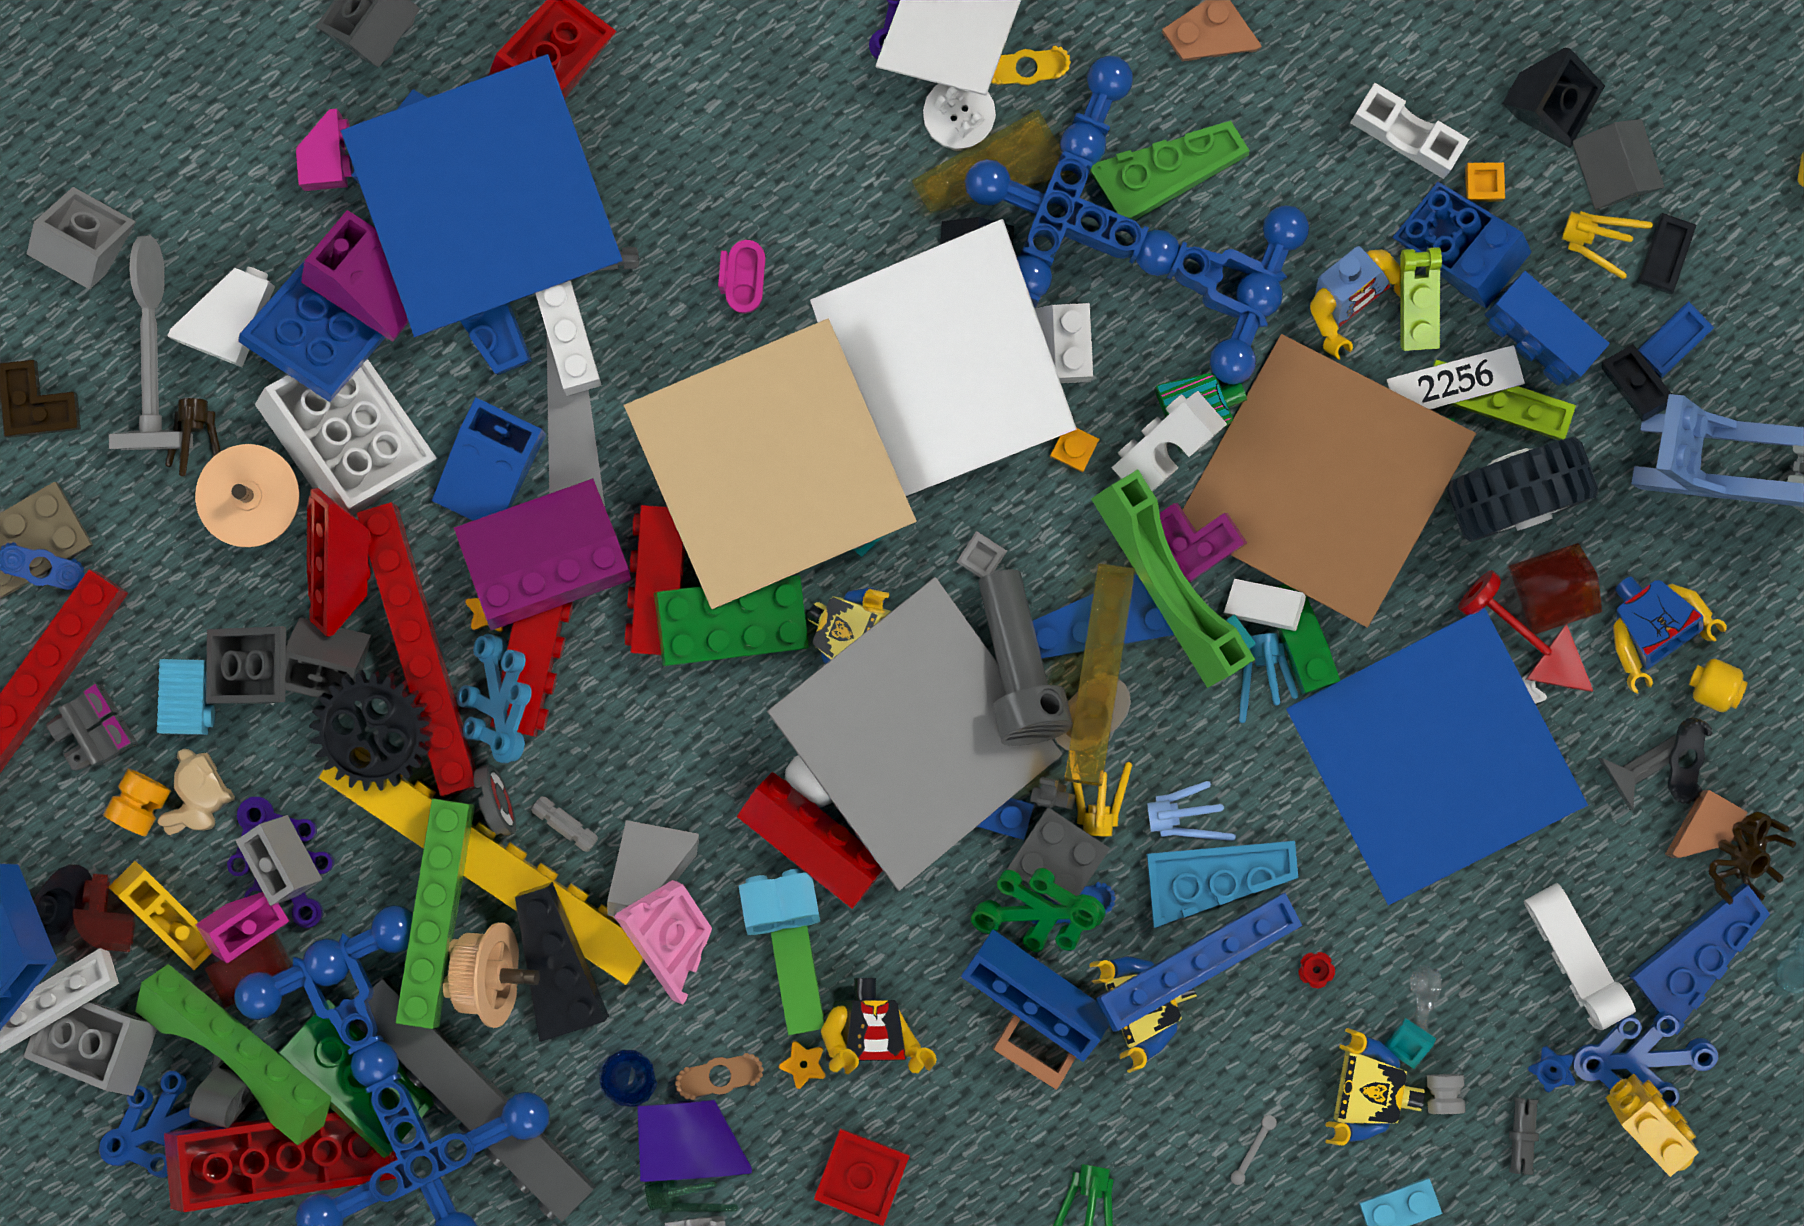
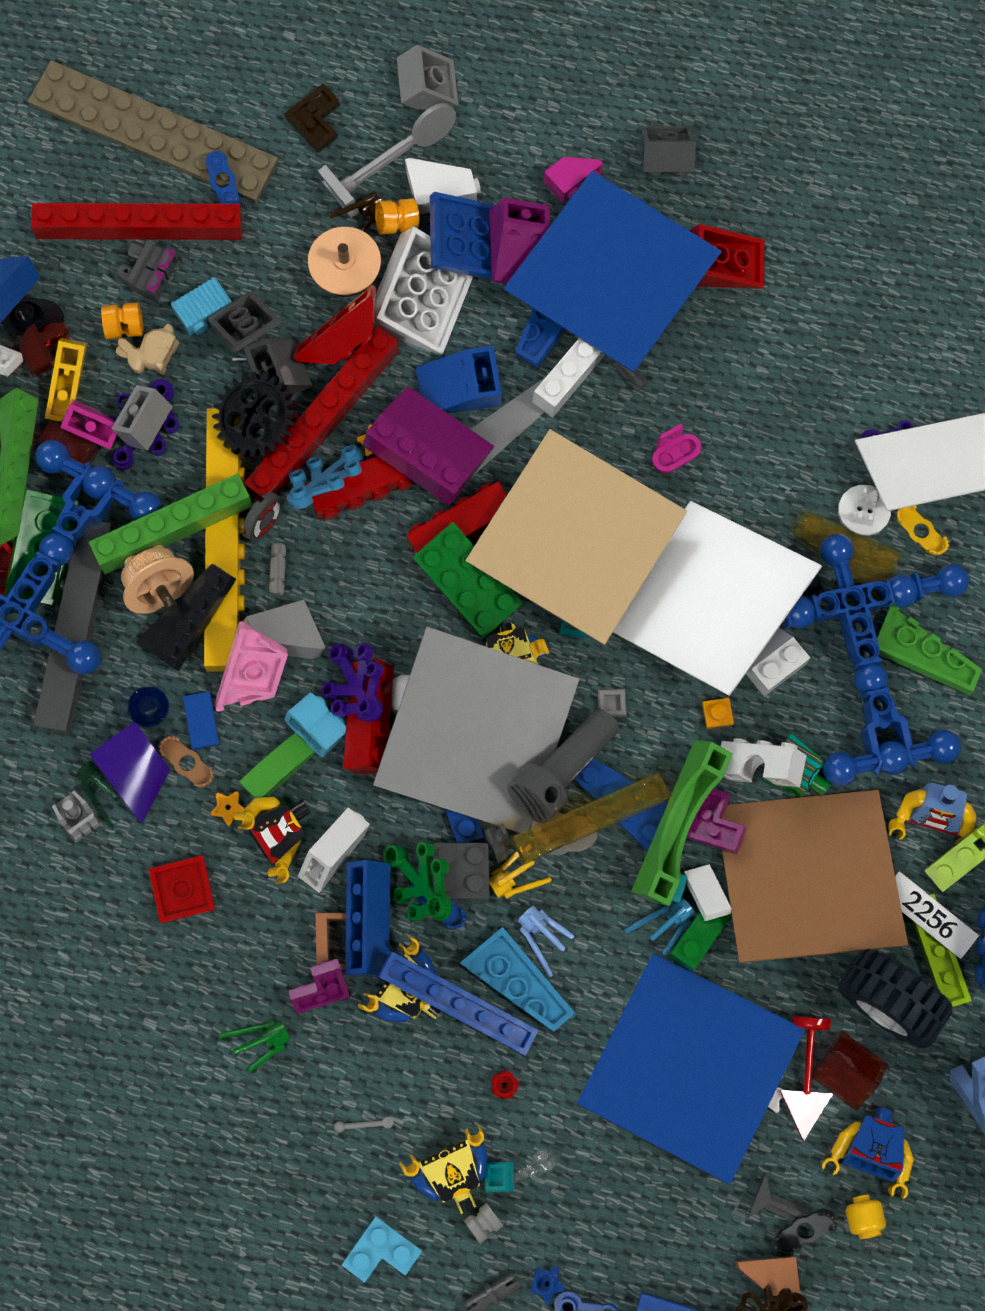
camera: 50 degrees right, 10 degrees down
(233, 391) = (393, 216): none -> light orange wheel
(682, 1028) = (201, 720): none -> blue tile
(807, 835) = (369, 706): none -> dark purple plant
(933, 979) = (333, 849): none -> white slope
(1081, 1088) = (326, 989): none -> magenta plate
(1578, 958) = (629, 1247): white beam -> none

